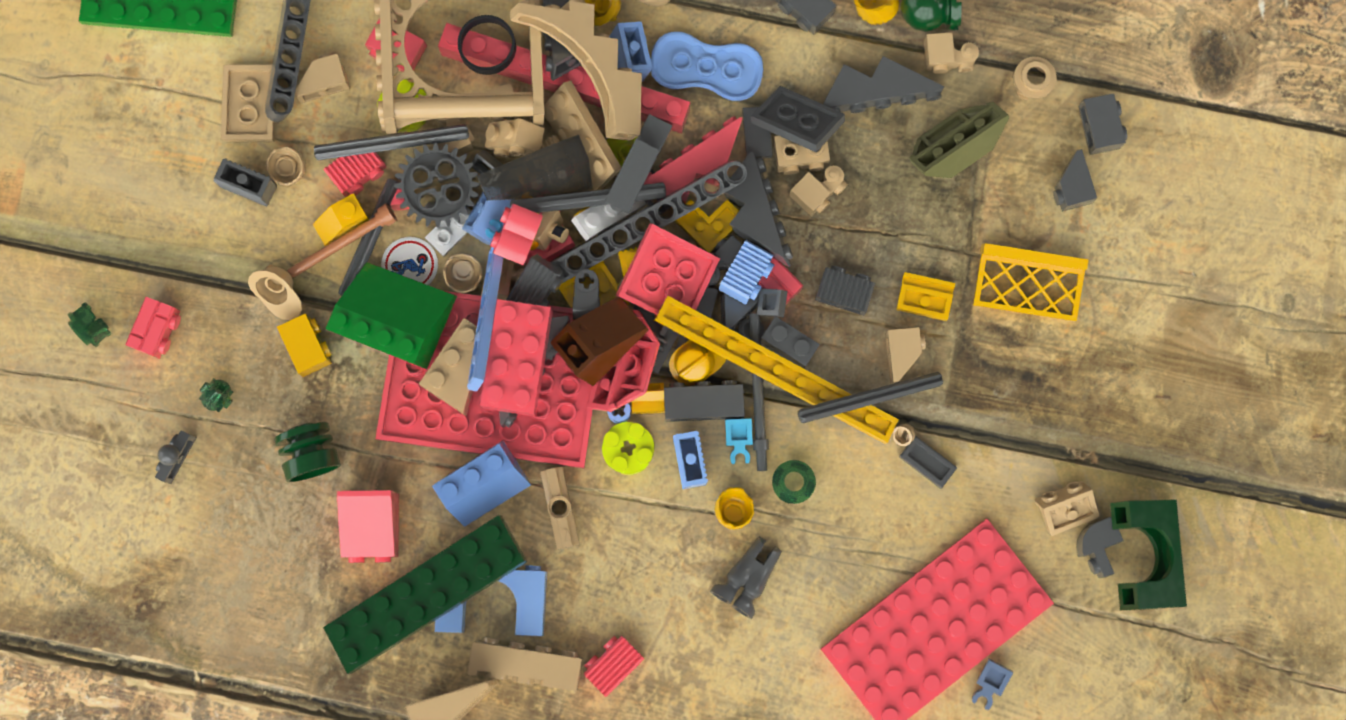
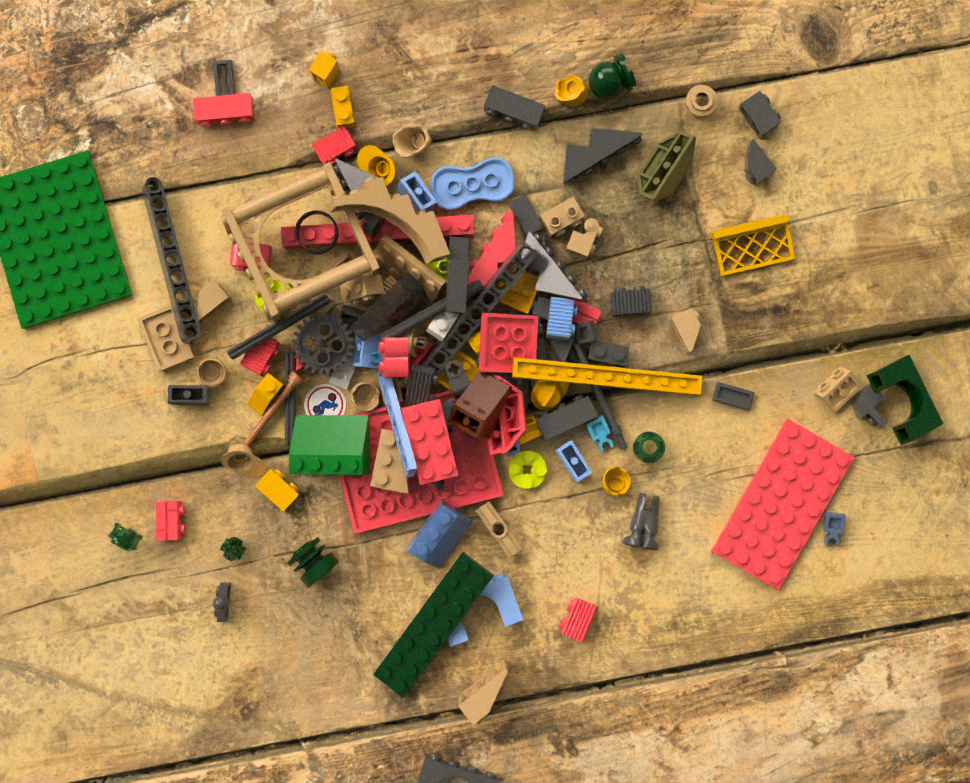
camera: 25 degrees left, 5 degrees up
(368, 525) = (375, 594): coral slope -> none
(524, 664) = (520, 643): tan wedge -> none
(798, 118) = (551, 196): dark grey plate -> none
(869, 397) = (677, 369): dark grey axle -> none
(900, 430) = (705, 384): tan hinge -> none
(925, 296) = (686, 283): yellow plate -> none
(942, 56) = (631, 110): tan brick -> none

